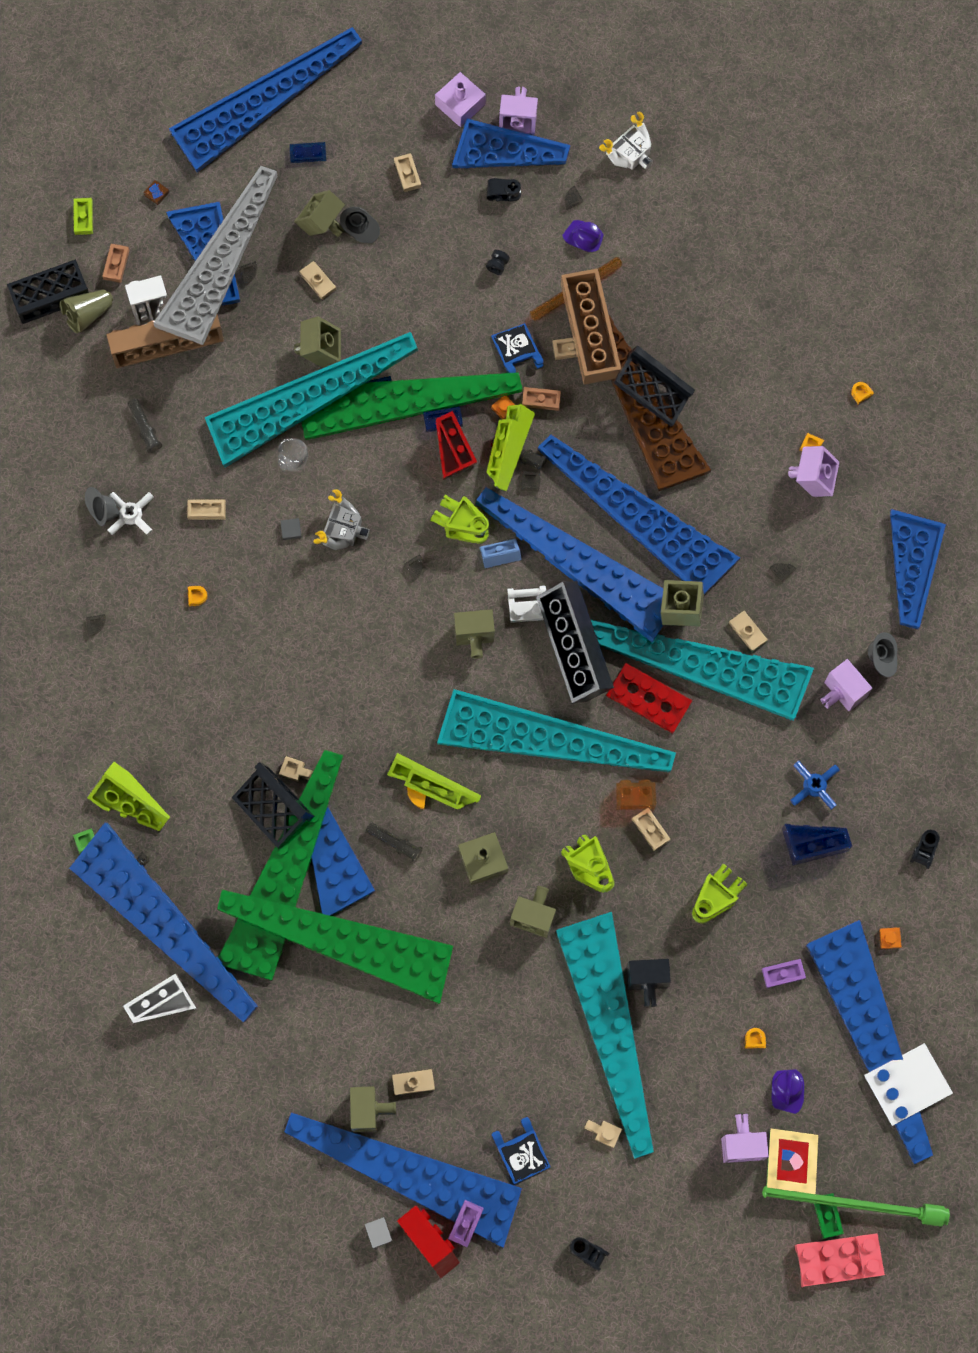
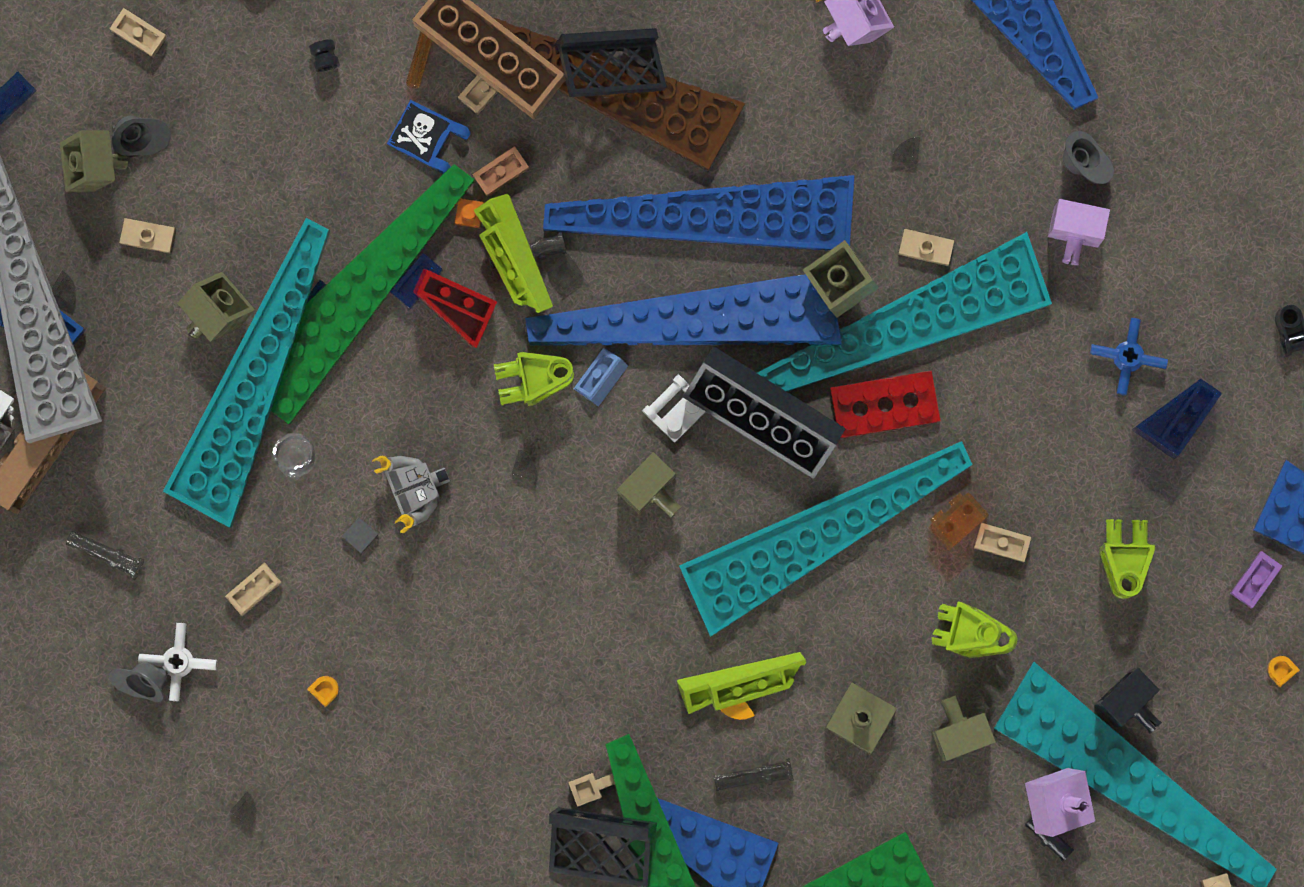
camera: 35 degrees left, 10 degrees up
(534, 1019) = (1055, 843): none -> black pin
(557, 1001) = (1060, 802): none -> lavender brick

